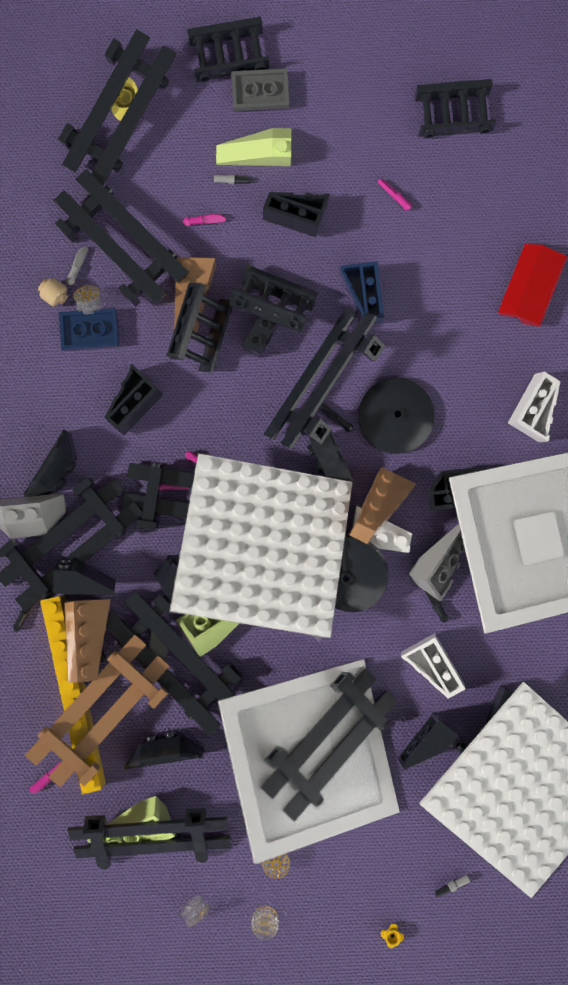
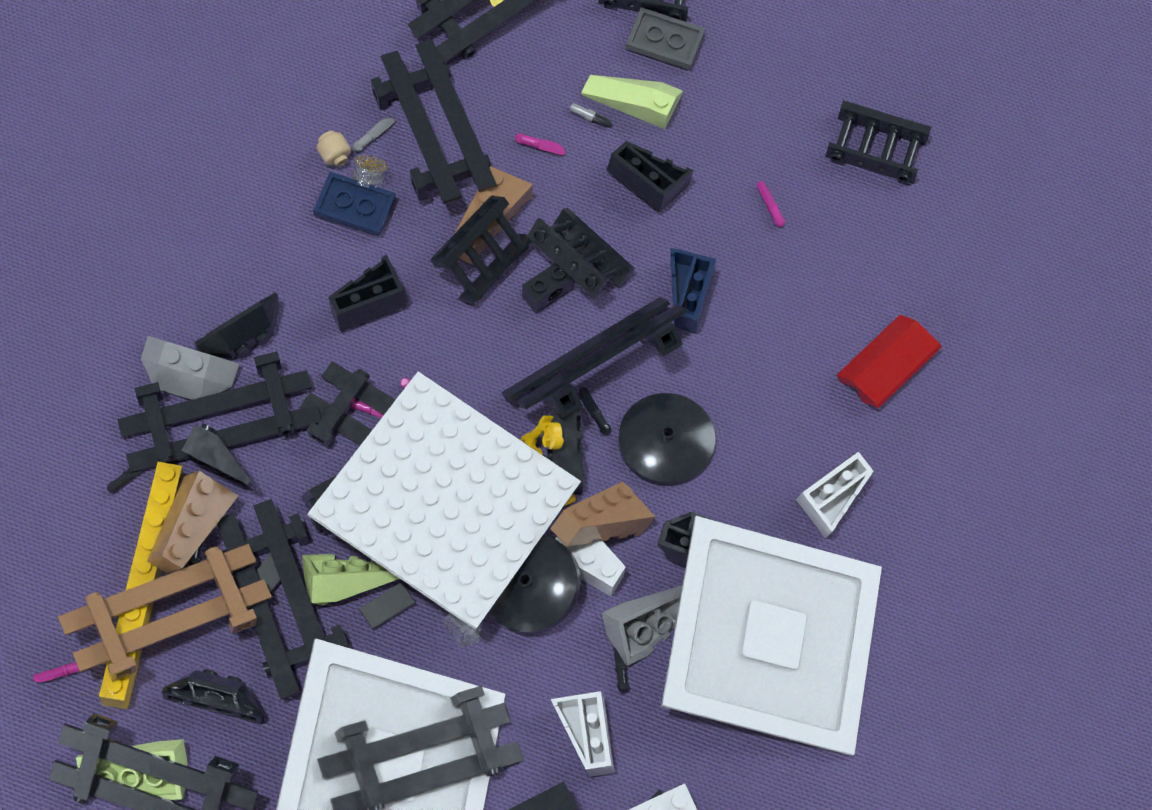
camera: 15 degrees right, 20 degrees down
(249, 636) = (387, 606): none -> dark grey tile
(318, 460) = (552, 434): none -> yellow helmet

